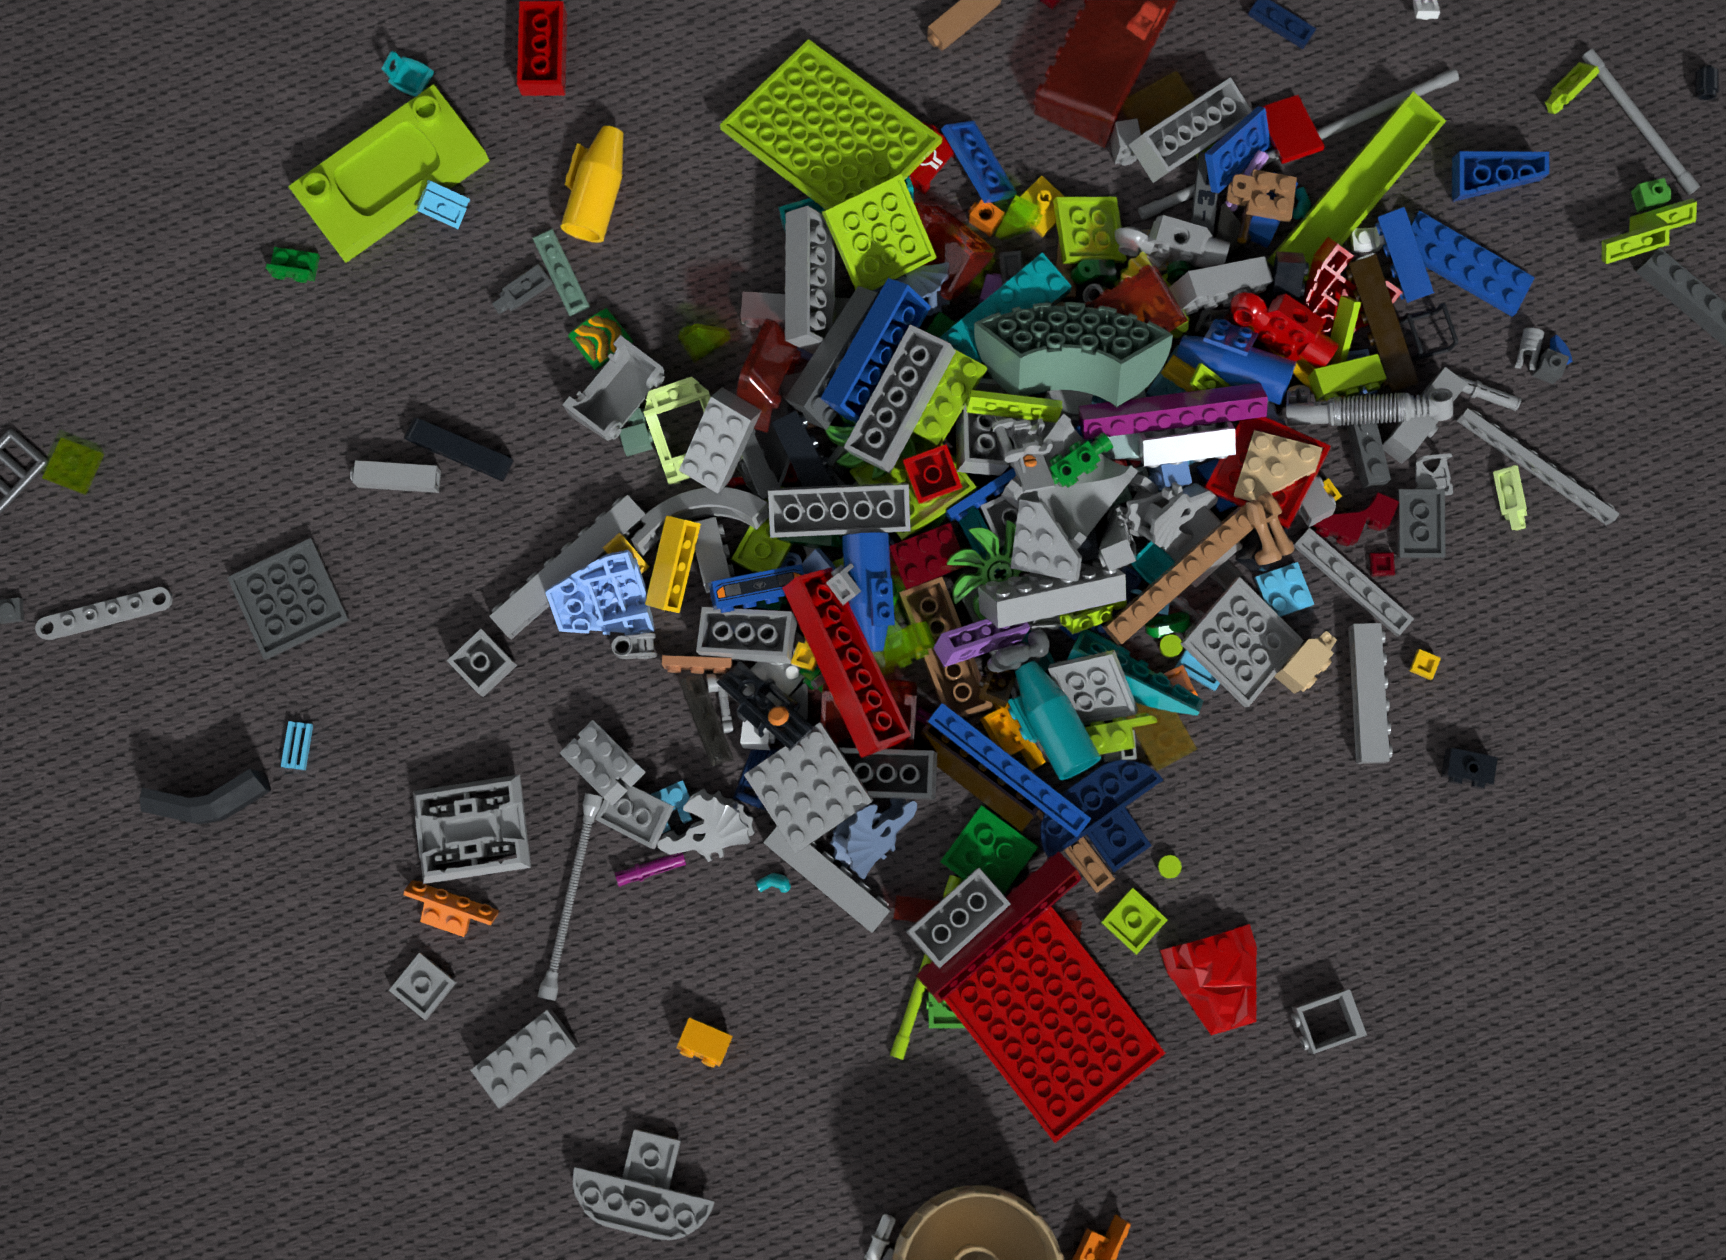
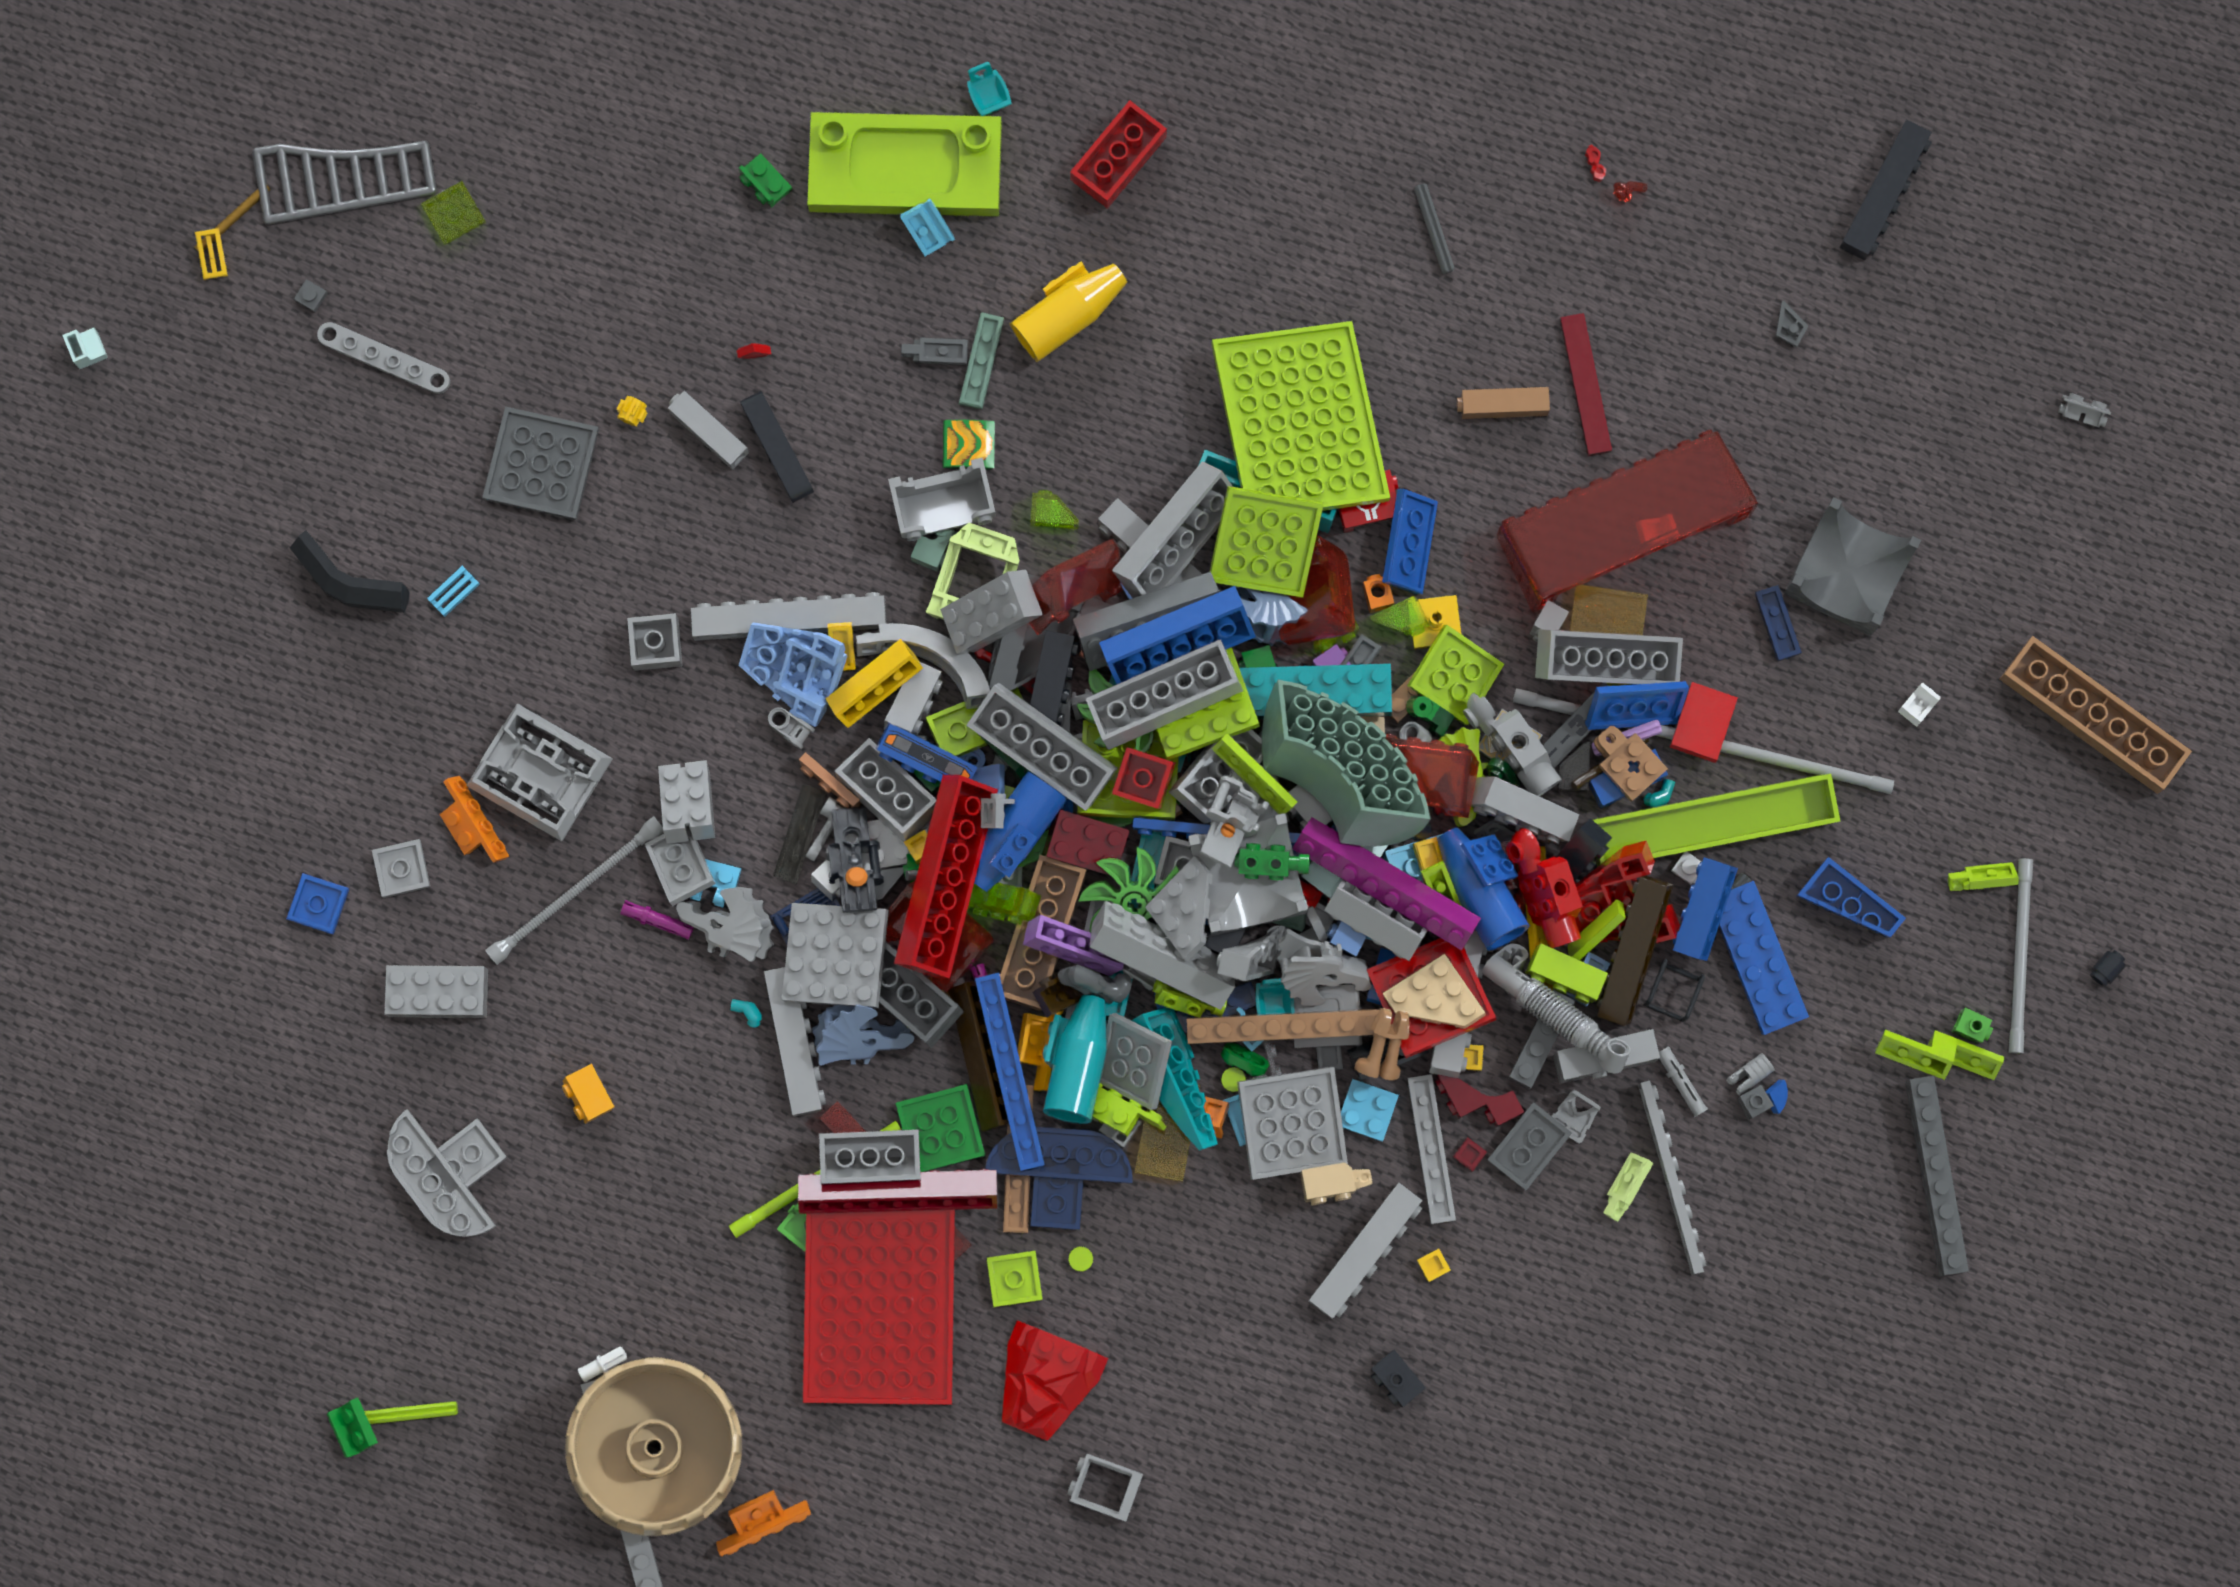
camera: 40 degrees right, 0 degrees up
(327, 506) = (631, 411): none -> yellow gear
(379, 1064) = (317, 903): none -> blue tile
(384, 393) = (753, 351): none -> red tile

